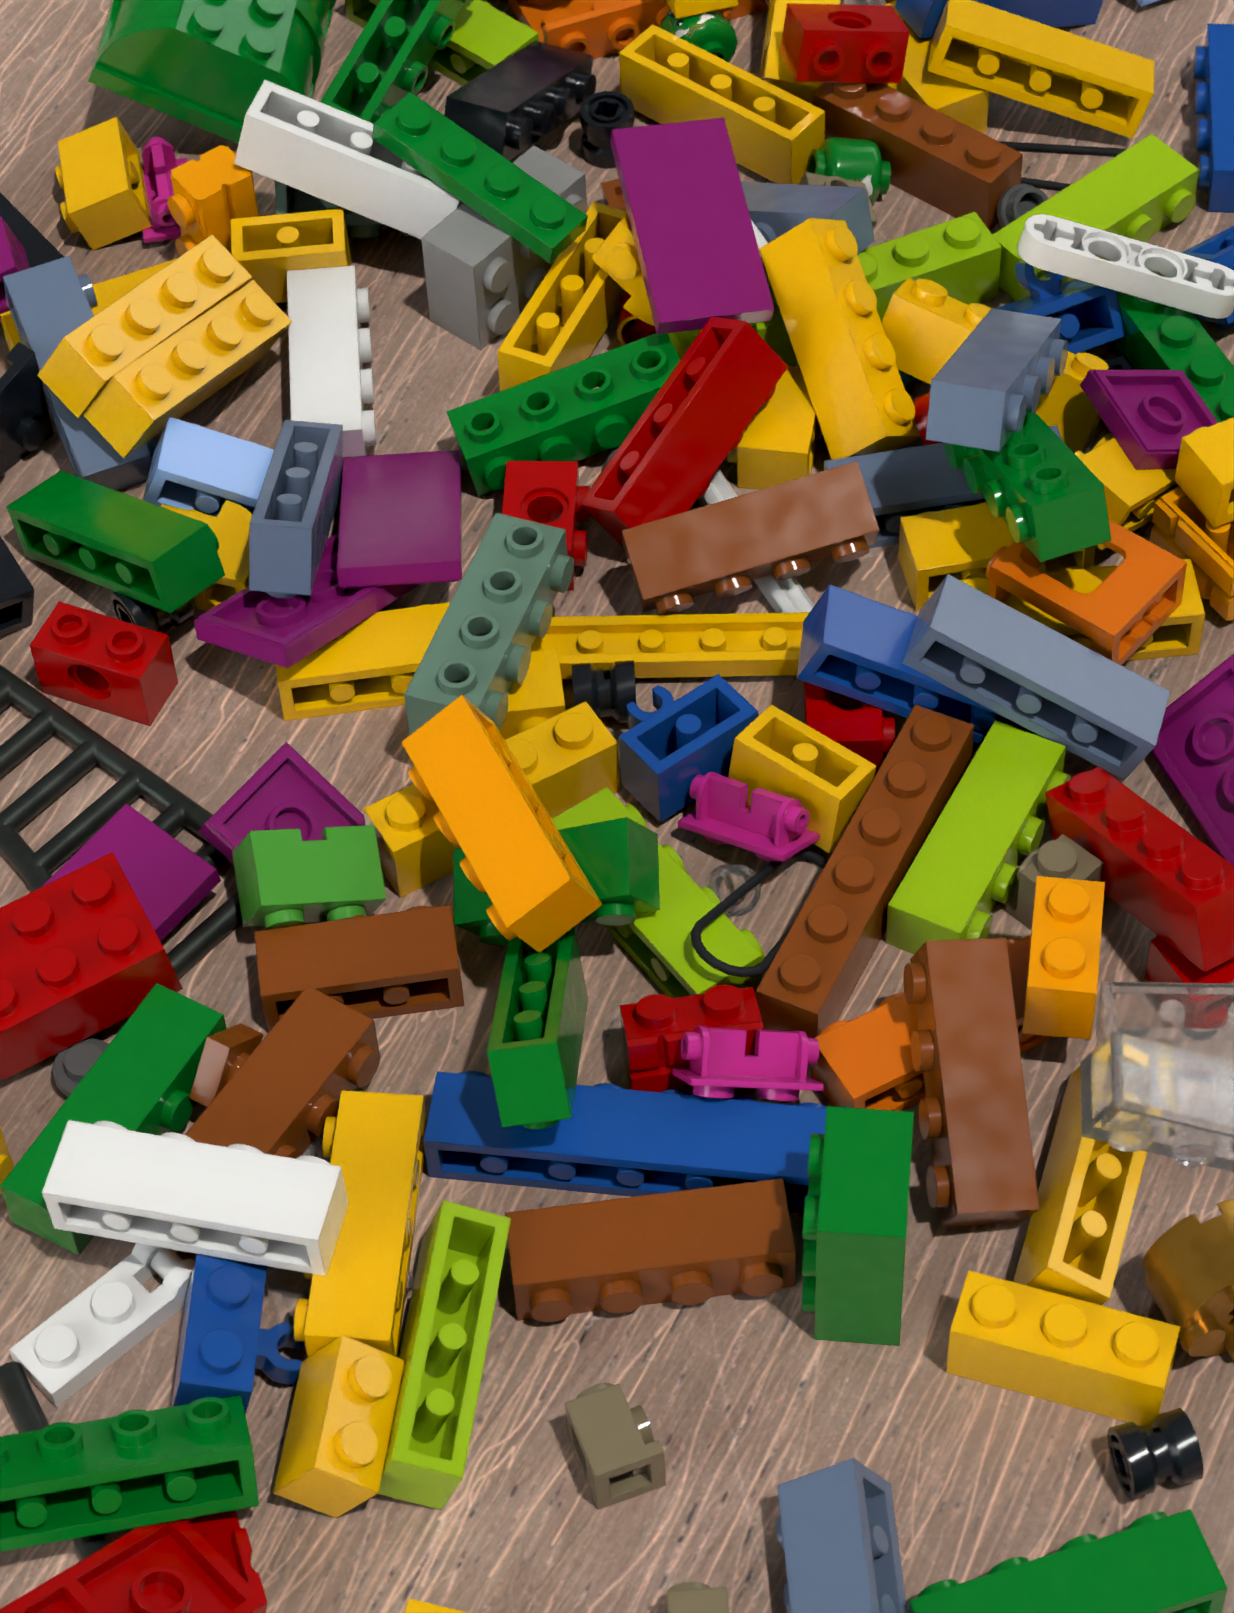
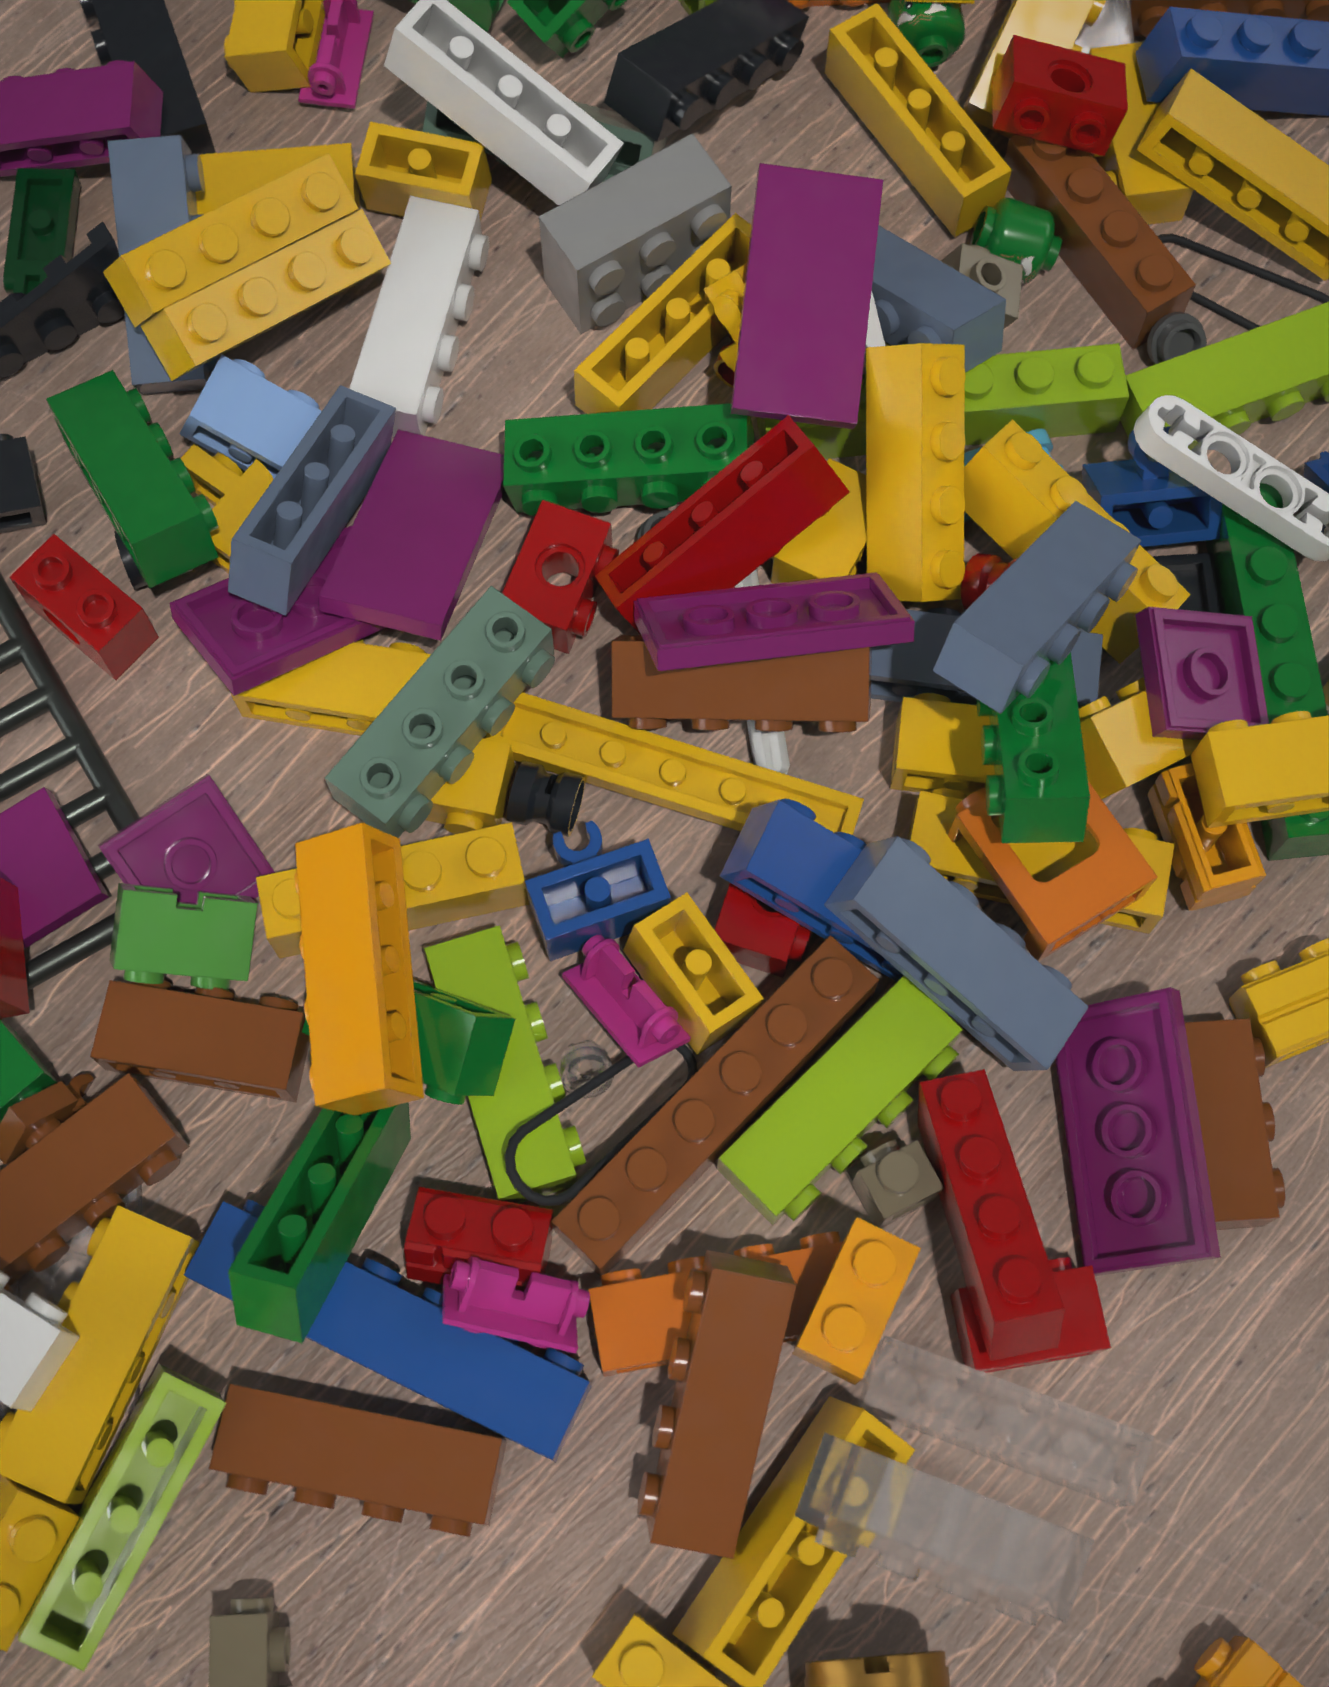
camera: 15 degrees right, 20 degrees up
(209, 196) = (359, 92): light orange brick -> none
(479, 177) = (616, 165): green plate -> none
(598, 117) = (795, 108): black wheel -> none
(760, 474) = (771, 621): none -> magenta tile
(857, 1225) = (541, 1543): green brick -> none

